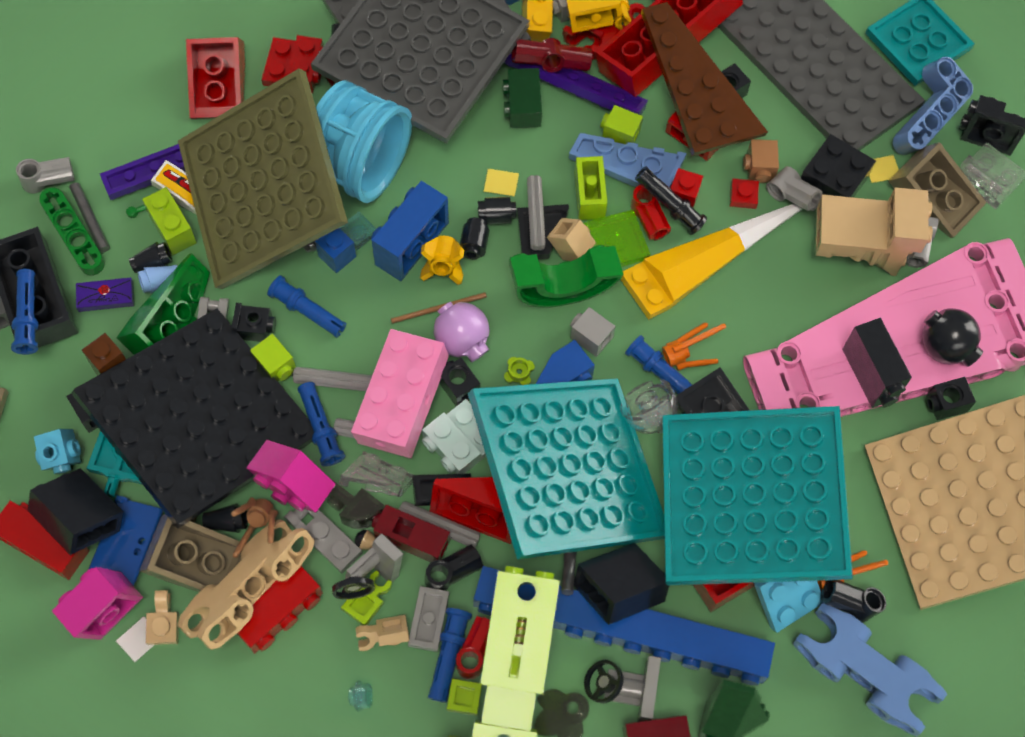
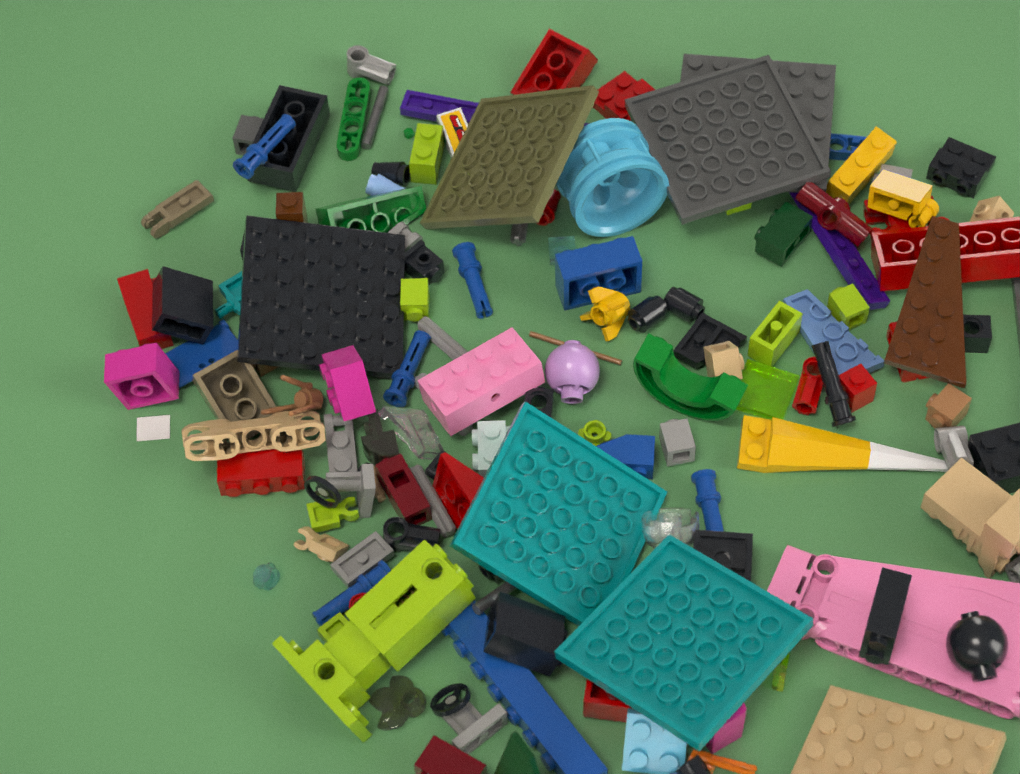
camera: 45 degrees right, 10 degrees down
(57, 450) = (209, 258): medium azure brick -> none
(104, 294) = (337, 177): dark purple tile -> none
(162, 625) = (170, 428): tan plate -> none
(223, 520) = (281, 389): black cone -> none
(336, 249) = (531, 251): blue brick -> none
(501, 182) = (711, 288): light yellow sticker -> none
(536, 212) = (711, 324): light grey axle -> none
(677, 351) = (735, 506): orange plant -> none
(744, 193) = (910, 426): red plate -> none
(958, 391) = (950, 694): black brick -> none

